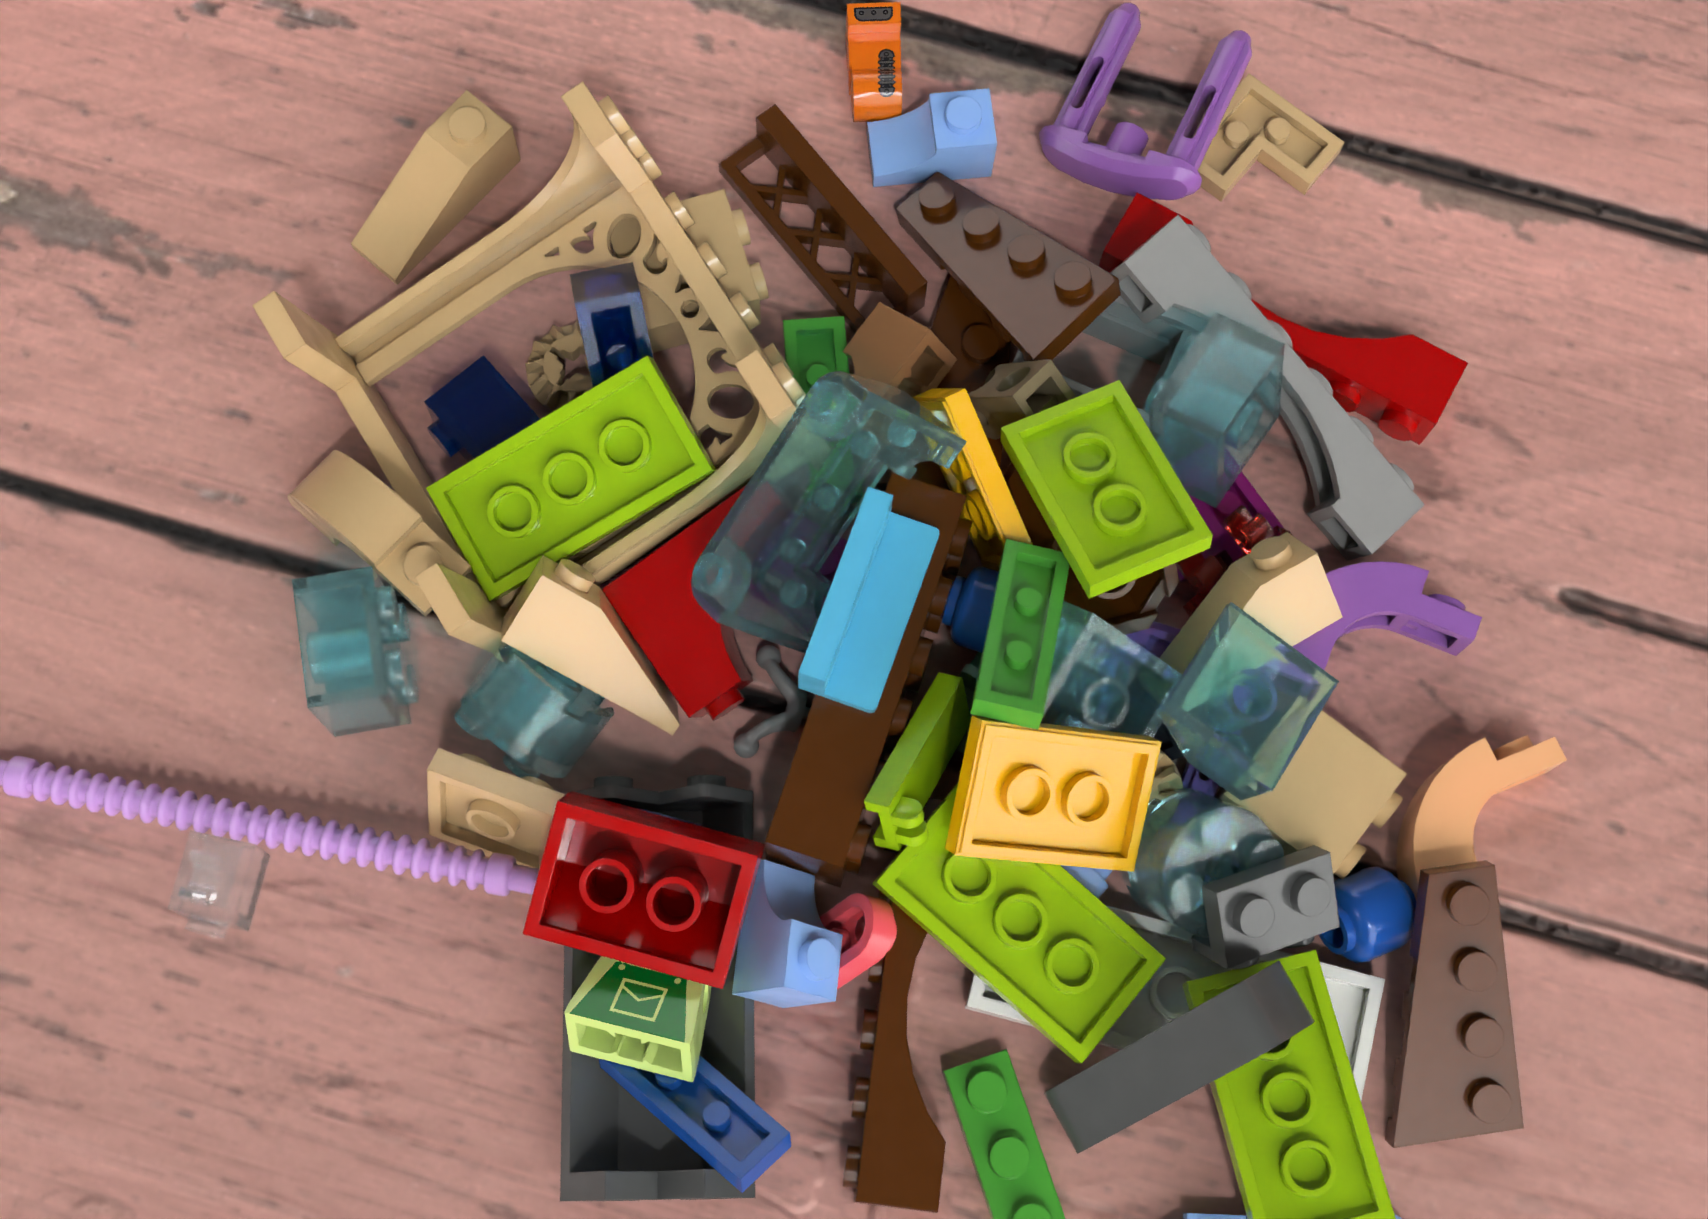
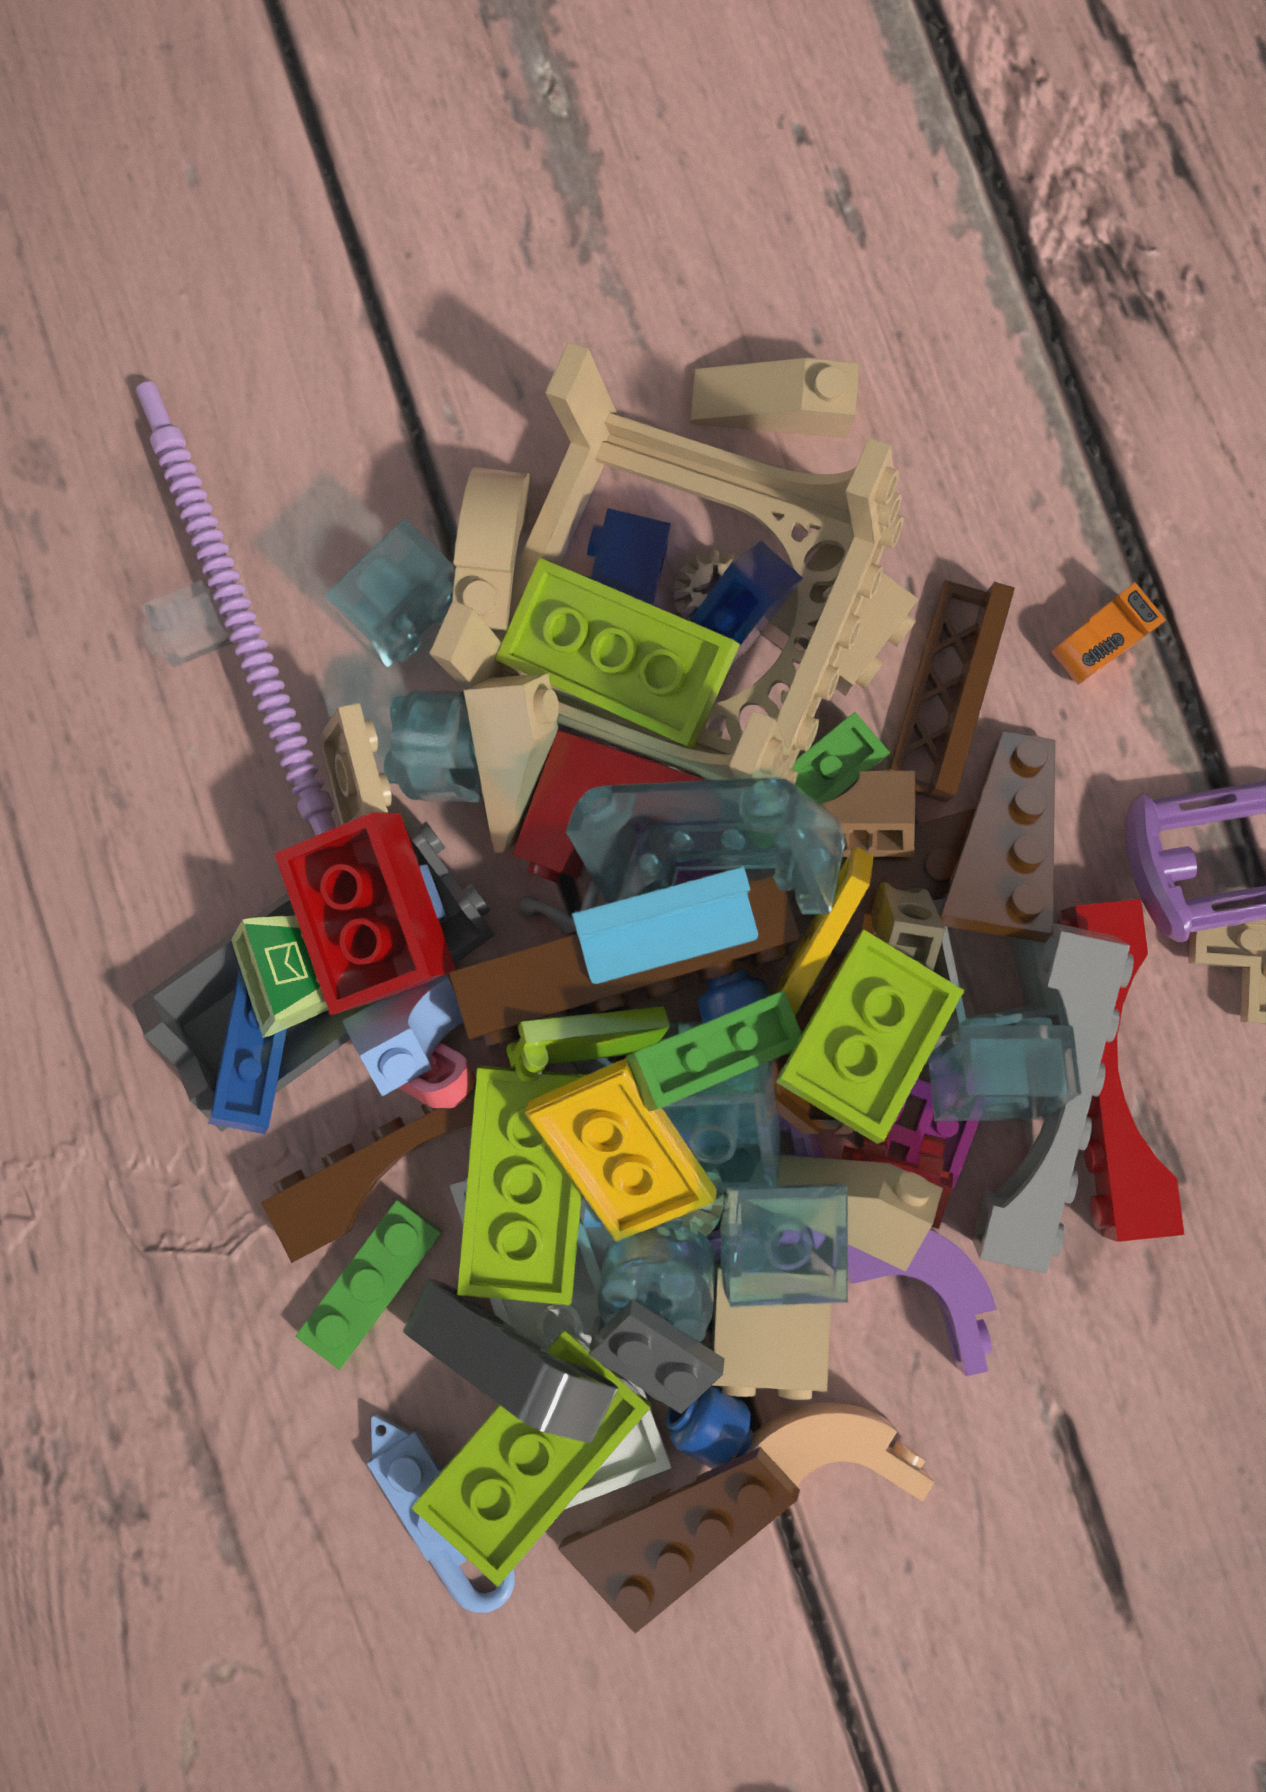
camera: 55 degrees right, 10 degrees up
(944, 135) = (1085, 725): light blue arch -> none

